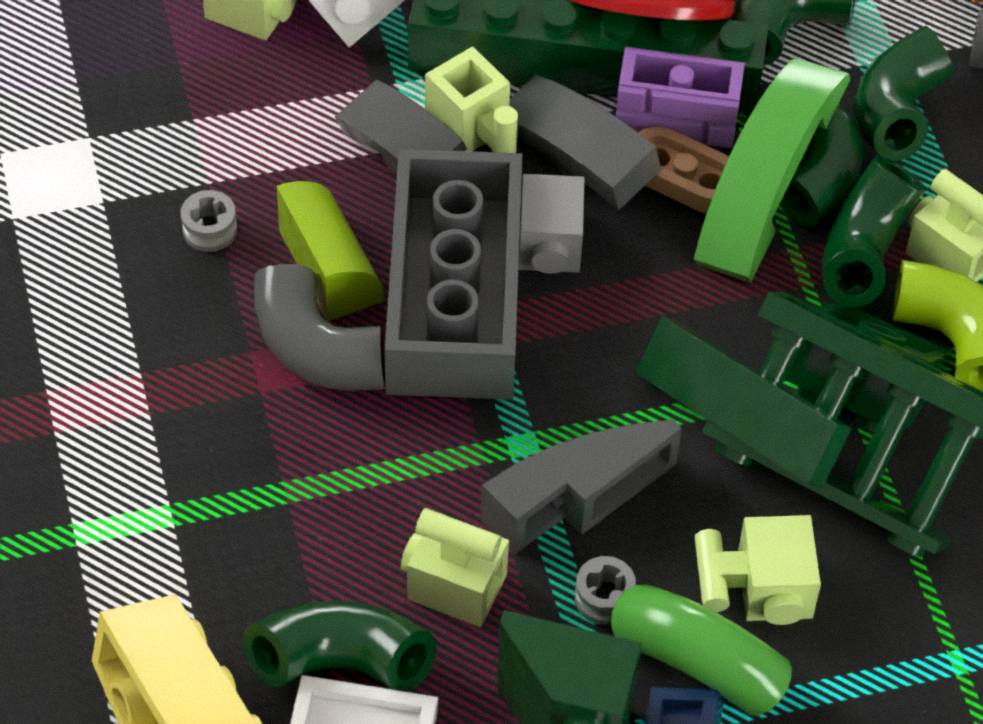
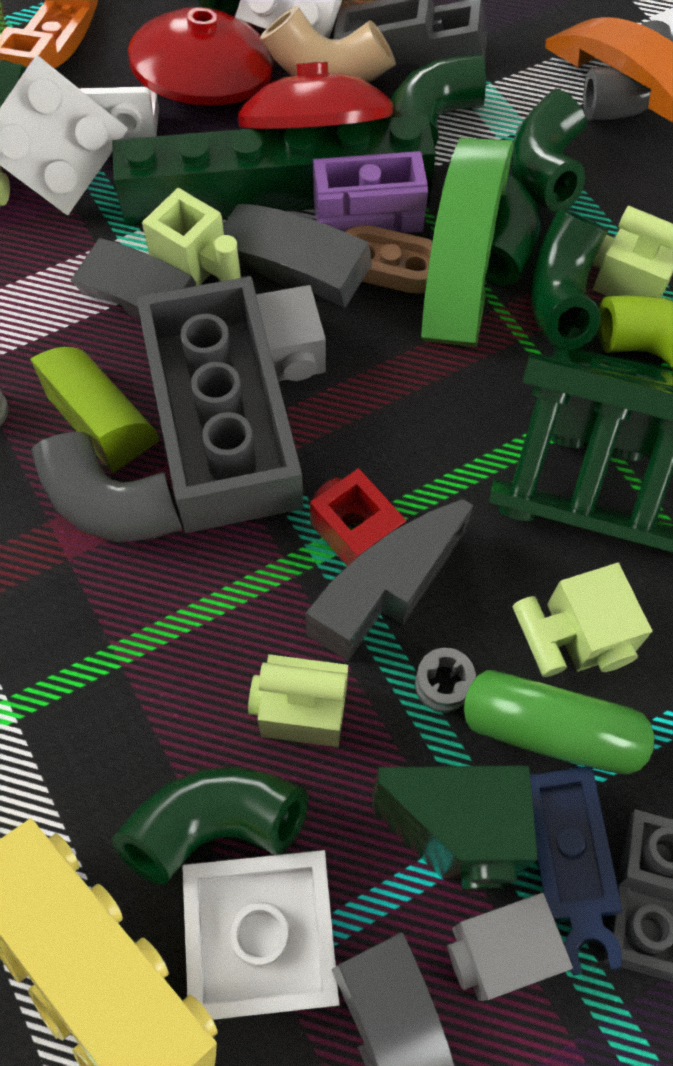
camera: 15 degrees left, 10 degrees up
(557, 409) = (352, 501): none -> red brick
(743, 402) = (526, 467): dark green tile -> none

